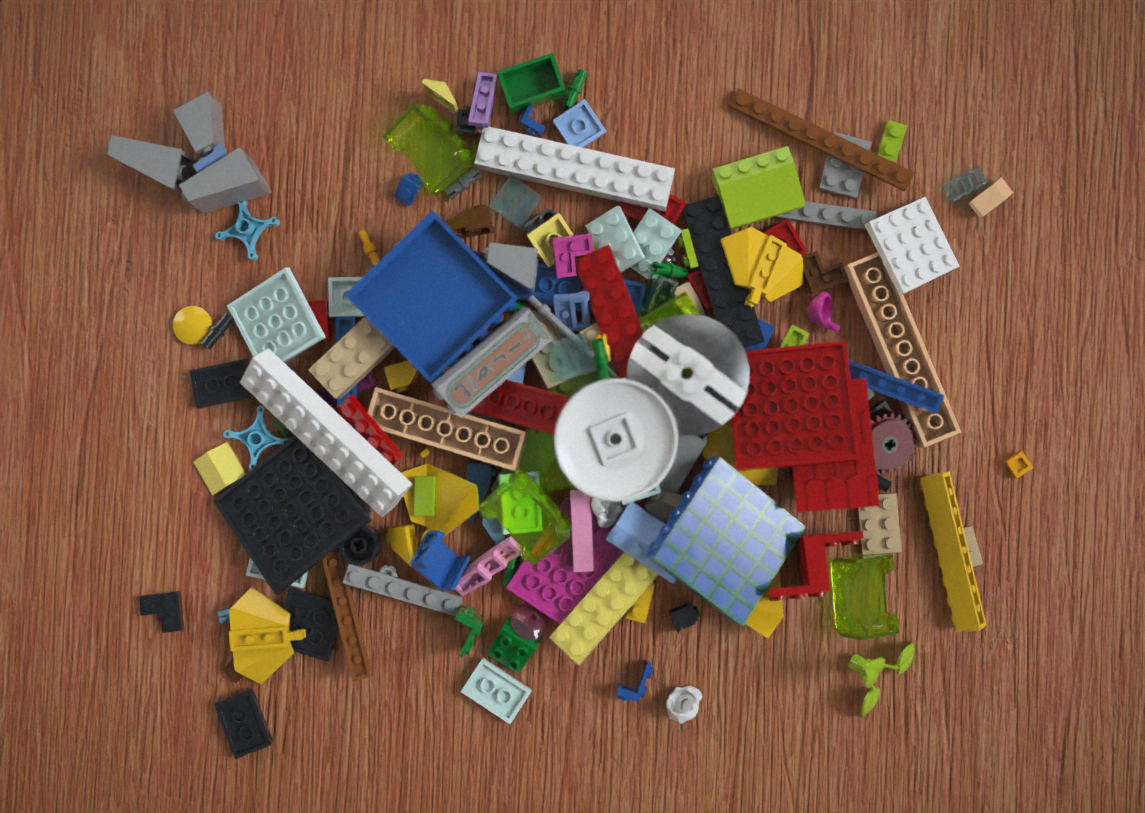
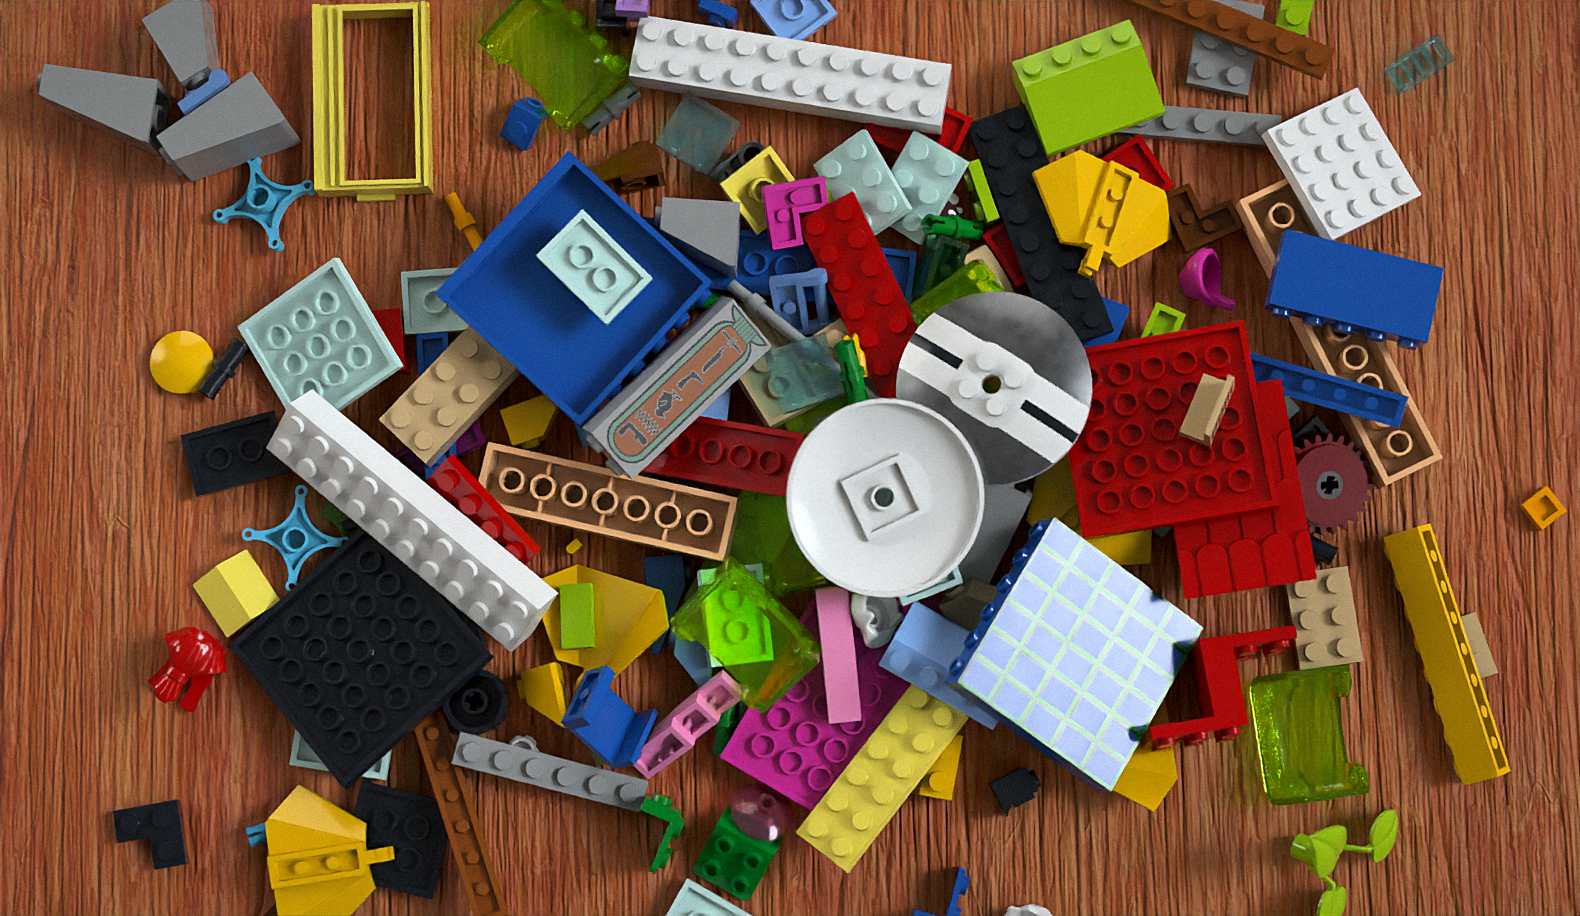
camera: 10 degrees left, 5 degrees down
(190, 506) = (193, 656): none -> red piece
(289, 169) = (329, 102): none -> light yellow piece
(444, 285) = (594, 267): none -> light aqua plate
(819, 395) = (1207, 409): none -> tan panel
(915, 325) = (1353, 289): none -> blue brick
(990, 198) = (1462, 82): light nougat slope -> none

